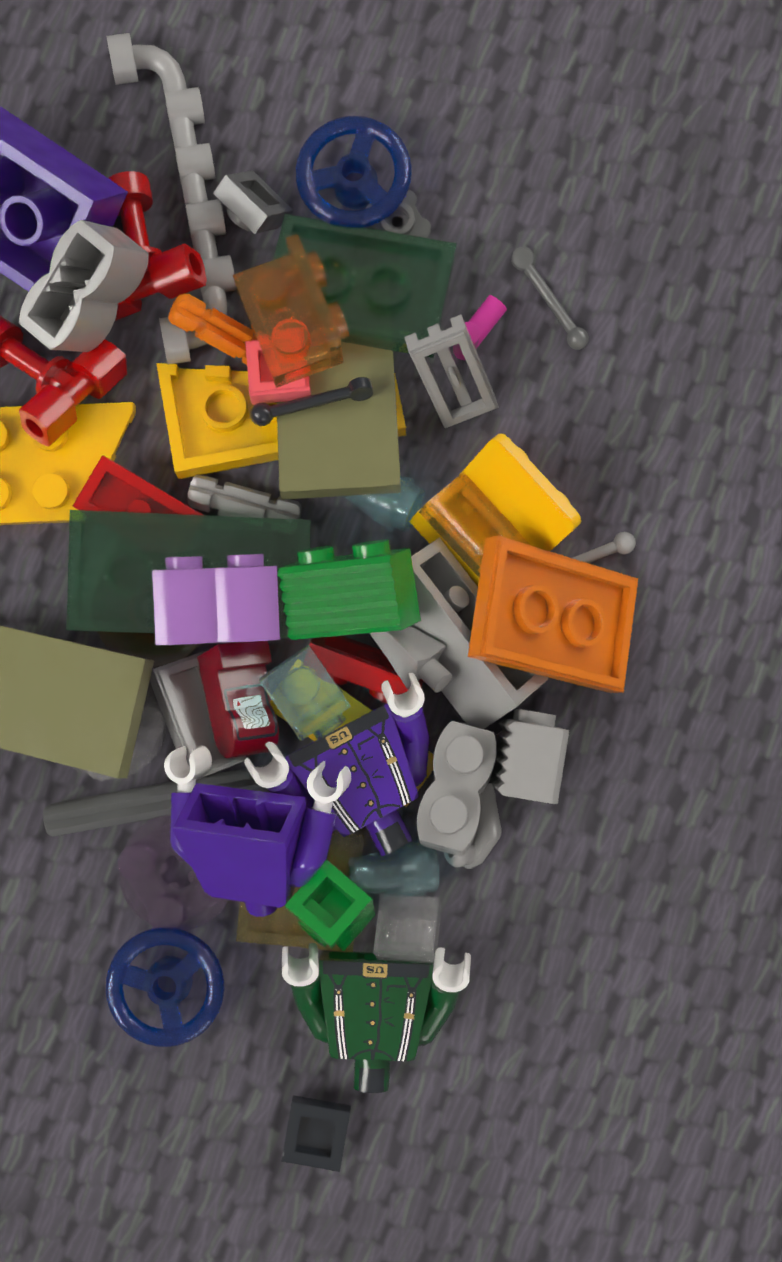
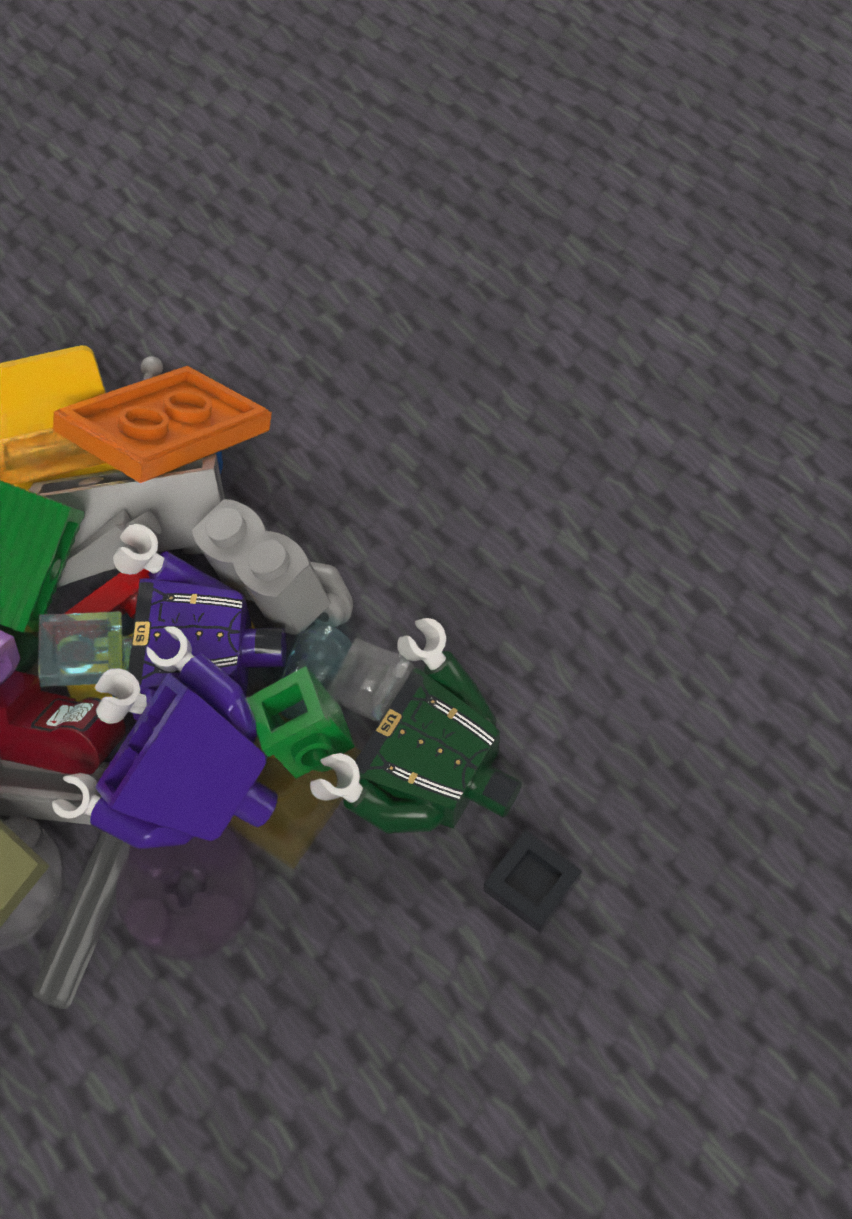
camera: 55 degrees left, 25 degrees down
(180, 970) = (341, 967): clear blue piece -> none
(530, 757) = (275, 486): light grey brick -> none

